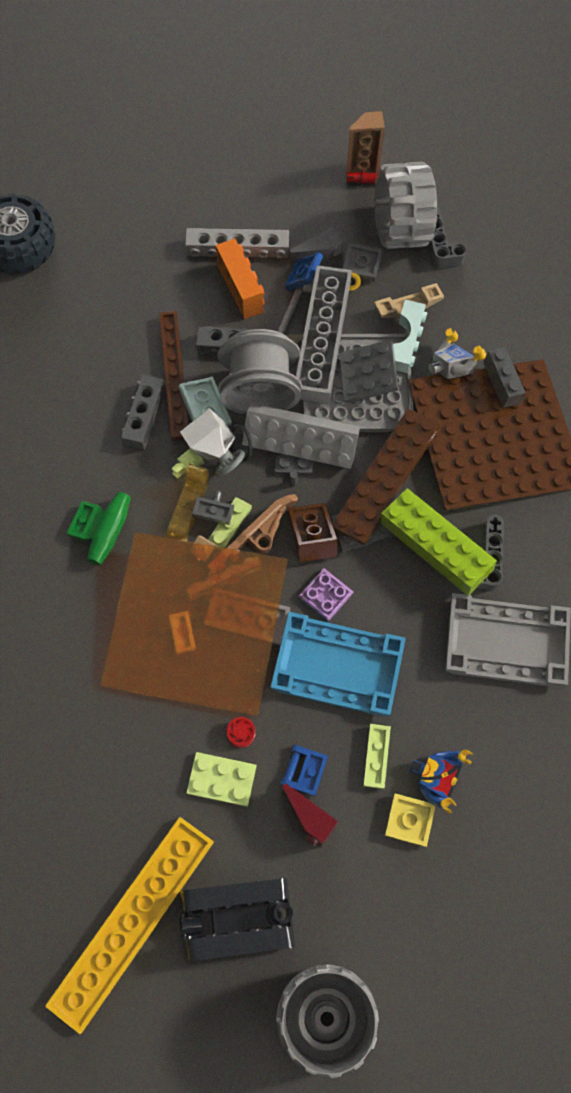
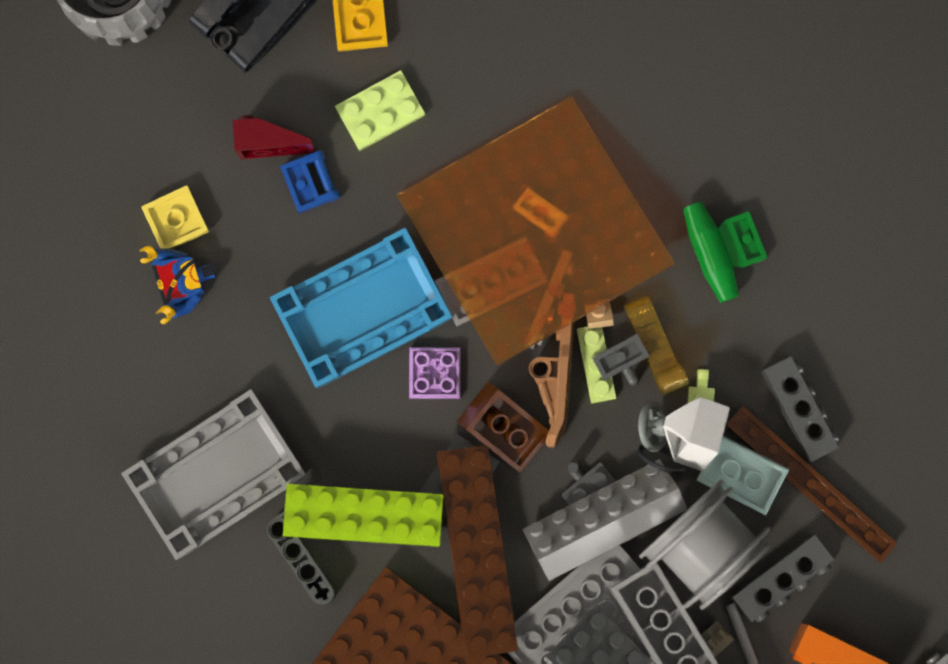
camera: 145 degrees right, 15 degrees up
(241, 732) = (399, 166): red wheel -> none
(376, 756) = (252, 252): yellowish green plate -> none

